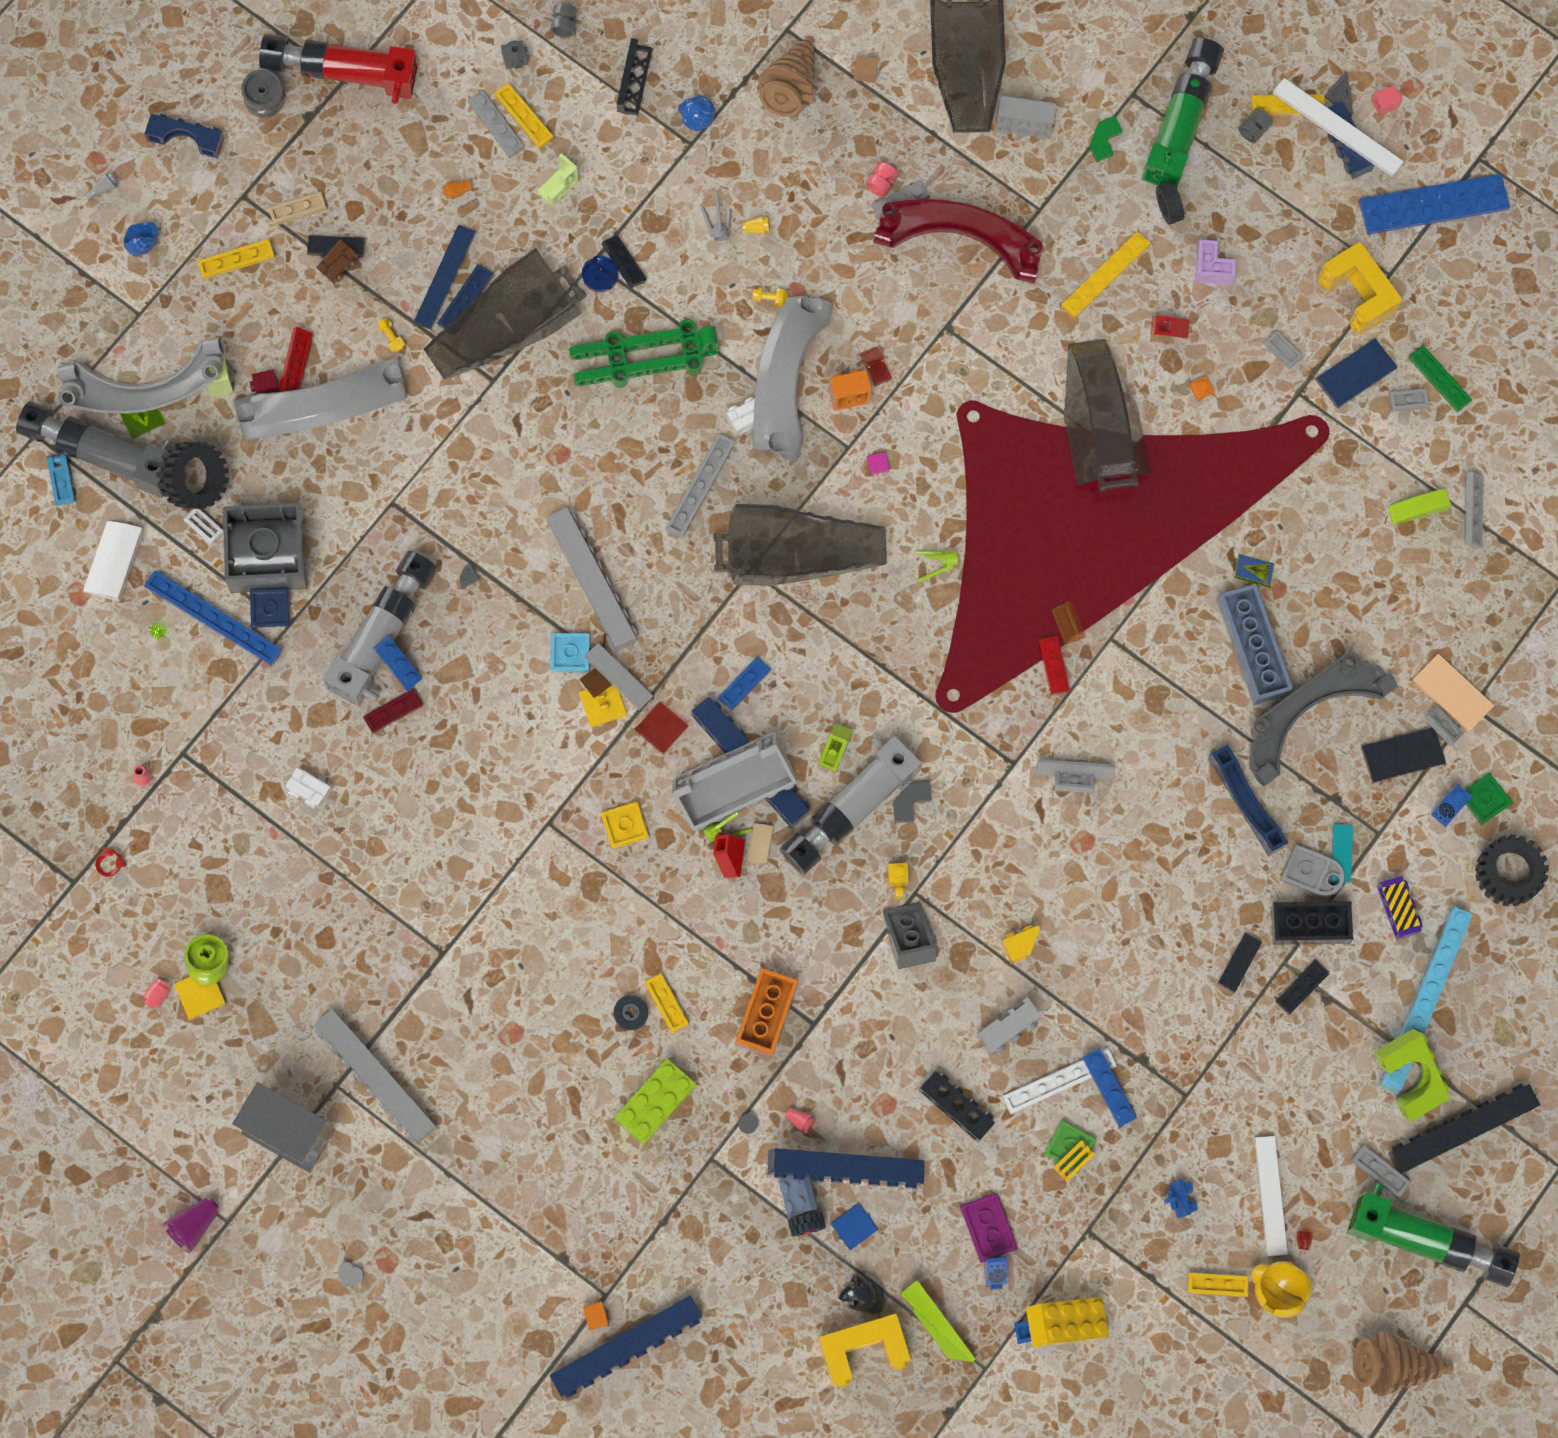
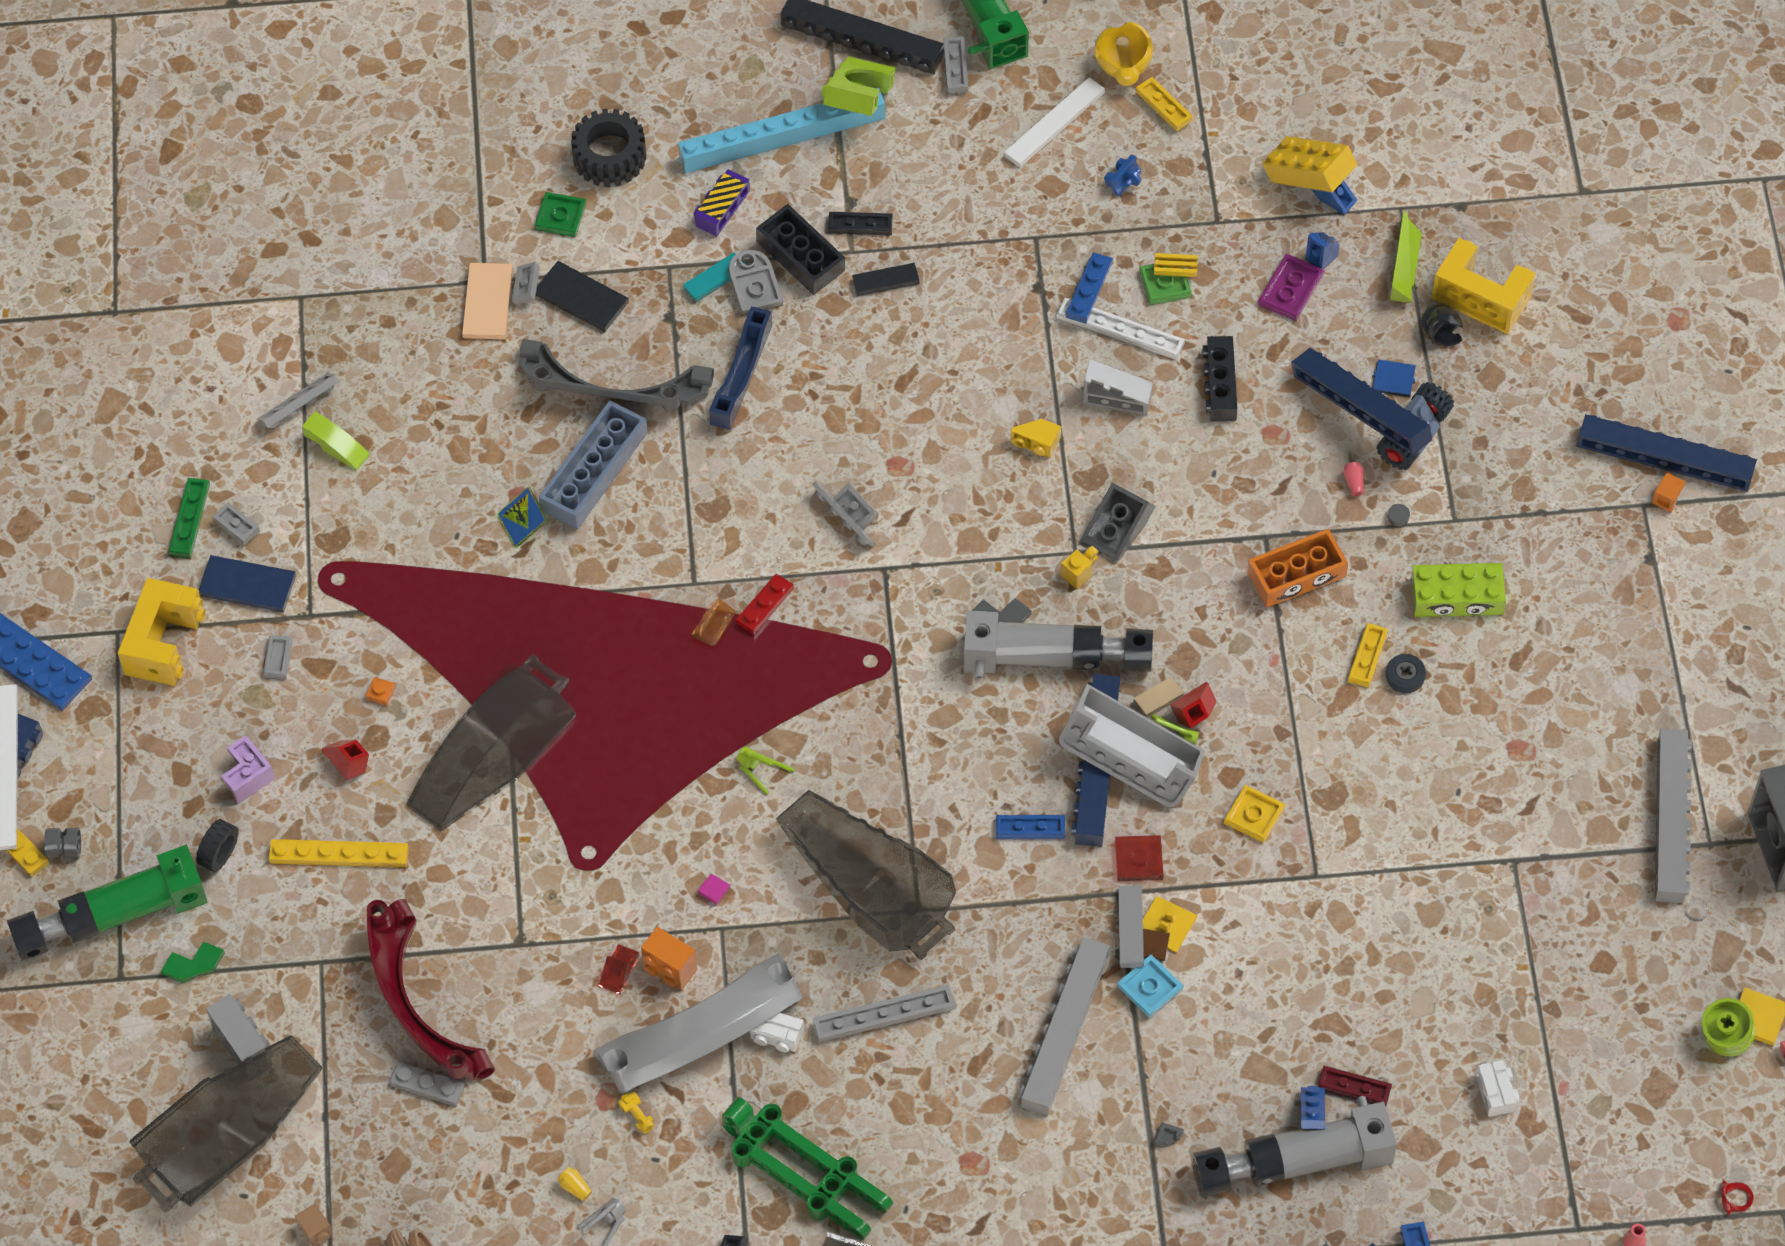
camera: 125 degrees left, 15 degrees down
(835, 747) = (1013, 705): lime slope -> none
(880, 181) = (422, 1112): coral wheel -> none
(1304, 1239) = (1064, 76): clear red hose -> none
(1451, 805) = (592, 226): blue slope -> none

